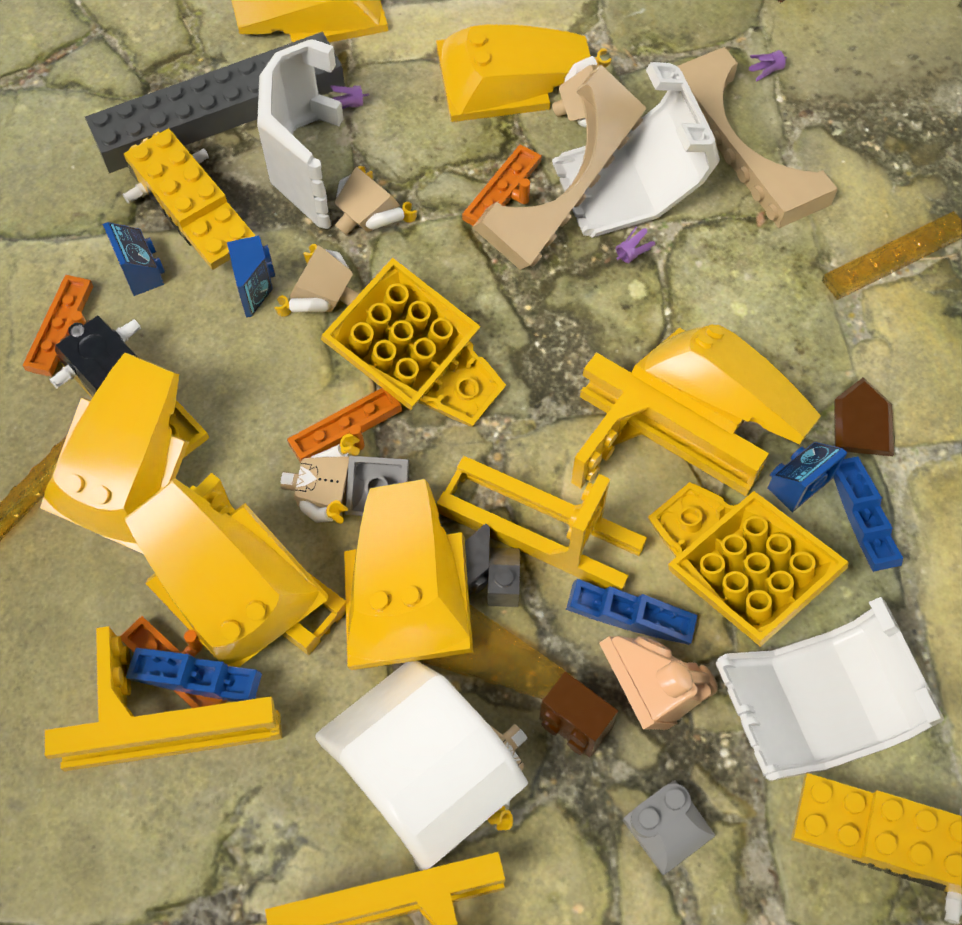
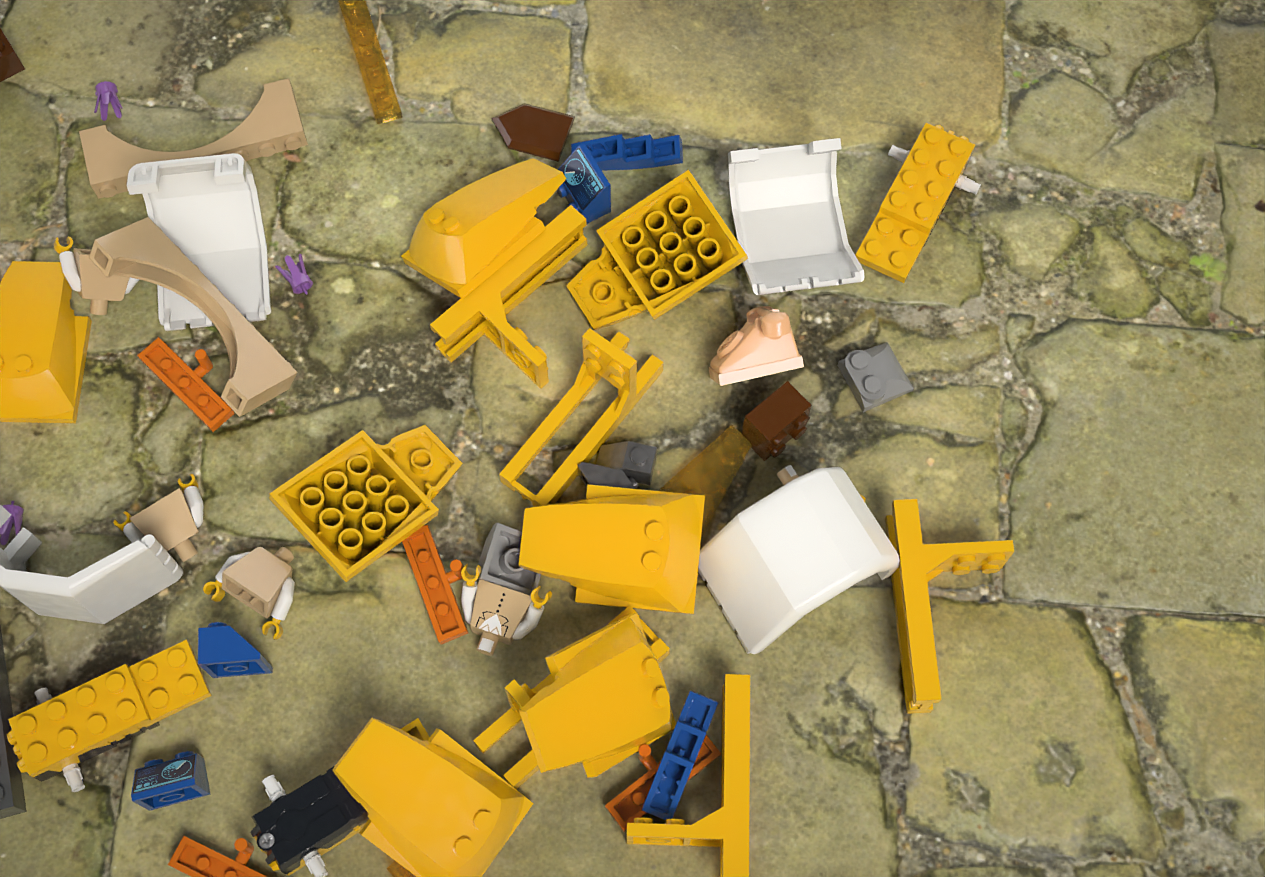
camera: 80 degrees left, 5 degrees up
(632, 613) = (682, 363): blue slope -> none

